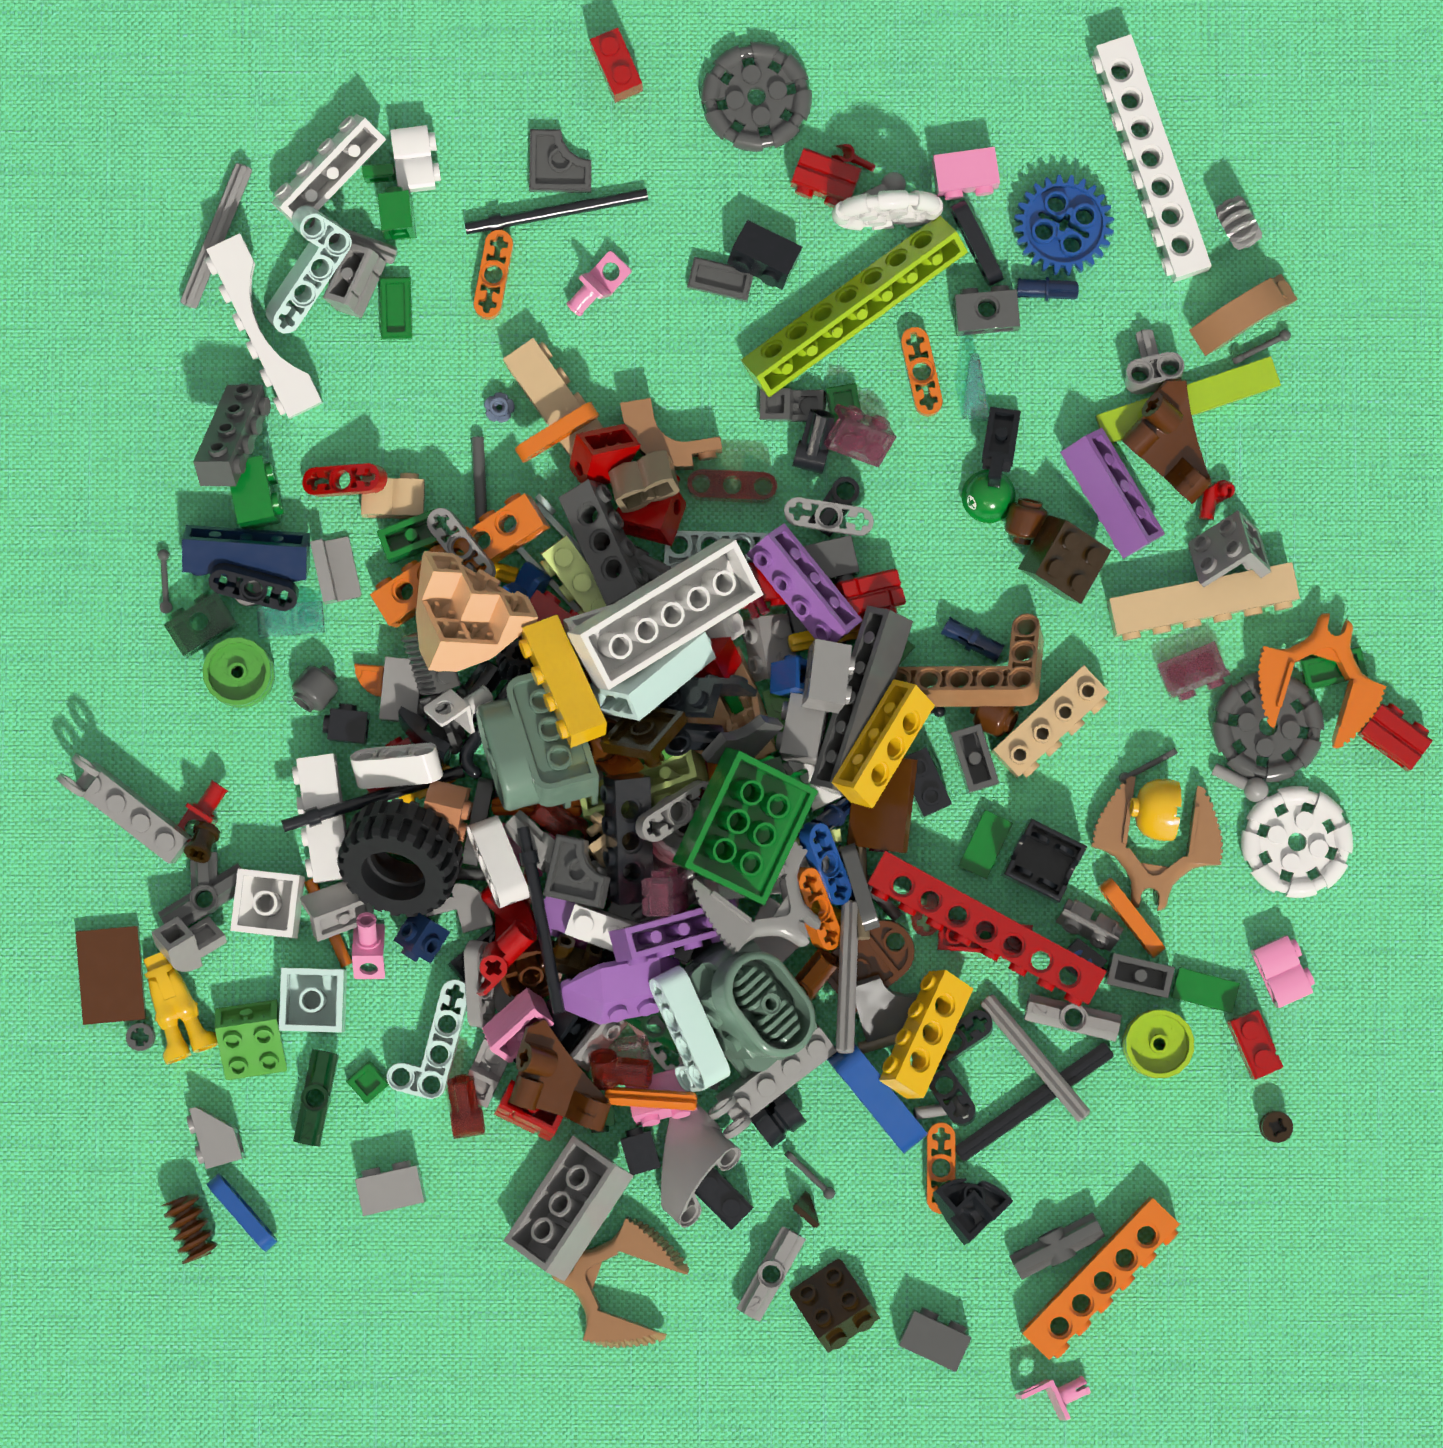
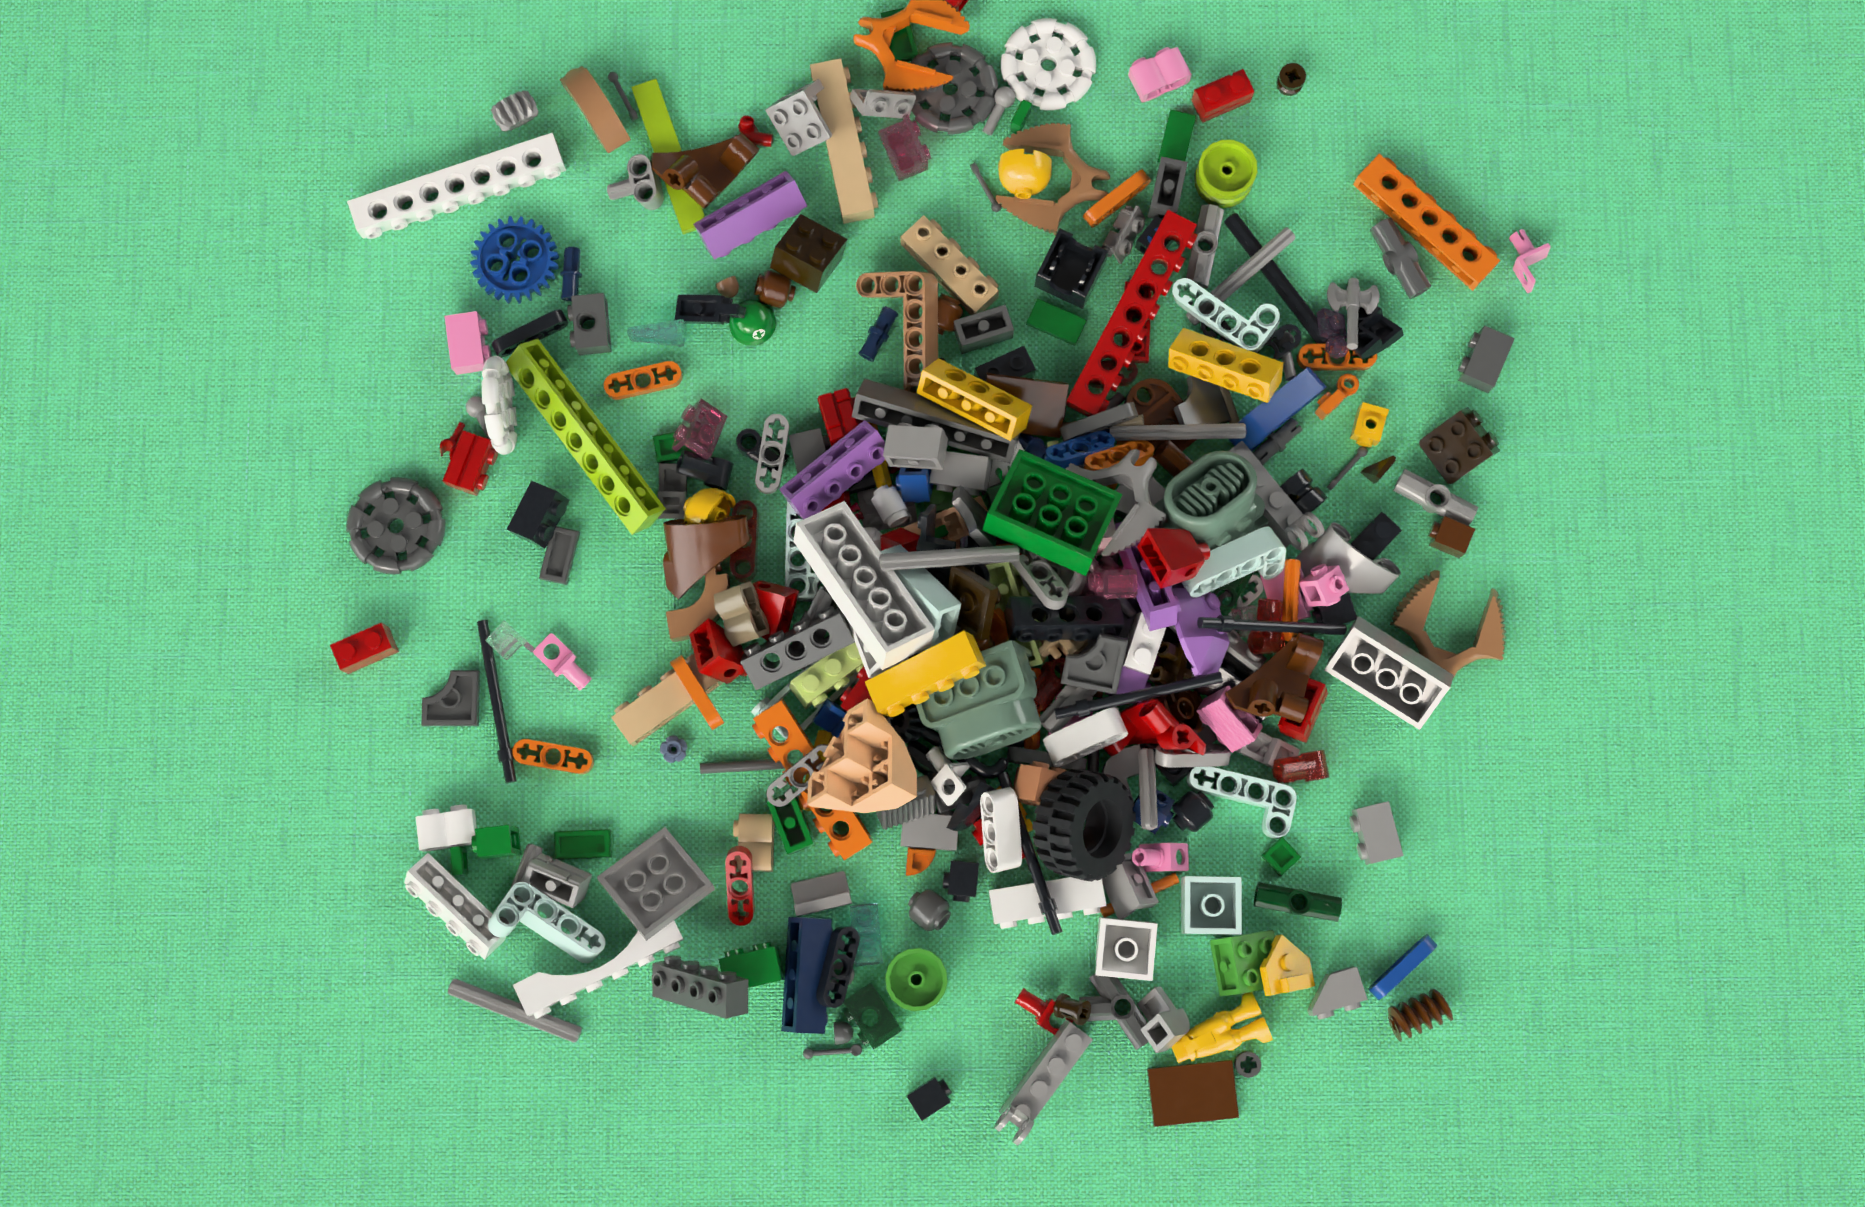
camera: 90 degrees left, 5 degrees down
(112, 686) = (929, 1097): none -> black brick
(184, 592) = (842, 1032): none -> dark grey hinge
(241, 1081) = (1285, 968): none -> yellow plate
(348, 387) = (655, 883): none -> light grey plate
(418, 983) = (1192, 811): none -> black head
(440, 930) = (1147, 787): none -> light grey axle
(617, 1018) = (1226, 623): none -> black bar
(621, 223) = (507, 640): none -> clear panel
(666, 1136) = (1323, 585): none -> bright pink brick
(691, 958) = (1172, 555): none -> red torso
(692, 709) = (949, 557): none -> light grey axle
(718, 434) = (699, 548): none -> reddish brown panel
(726, 1288) = (1450, 536): none -> reddish brown brick
(761, 445) = (708, 506): none -> yellow cylinder
(765, 648) = (890, 506): none -> white brick
(840, 1093) = (1277, 441): none -> dark grey pin
(870, 1204) = (1373, 414): none -> yellow brick
(886, 1156) = (1329, 401): none -> orange plate
(973, 1162) = (1332, 326): none -> clear purple plate
(989, 1031) = (1222, 312): none -> light aqua beam
(1007, 1187) = (1353, 300): none -> light grey piece
(1029, 468) = (728, 287): none -> medium nougat hinge
(1230, 807) = (1020, 116): none -> green tile
(1244, 645) = (883, 102): none -> light grey bracket

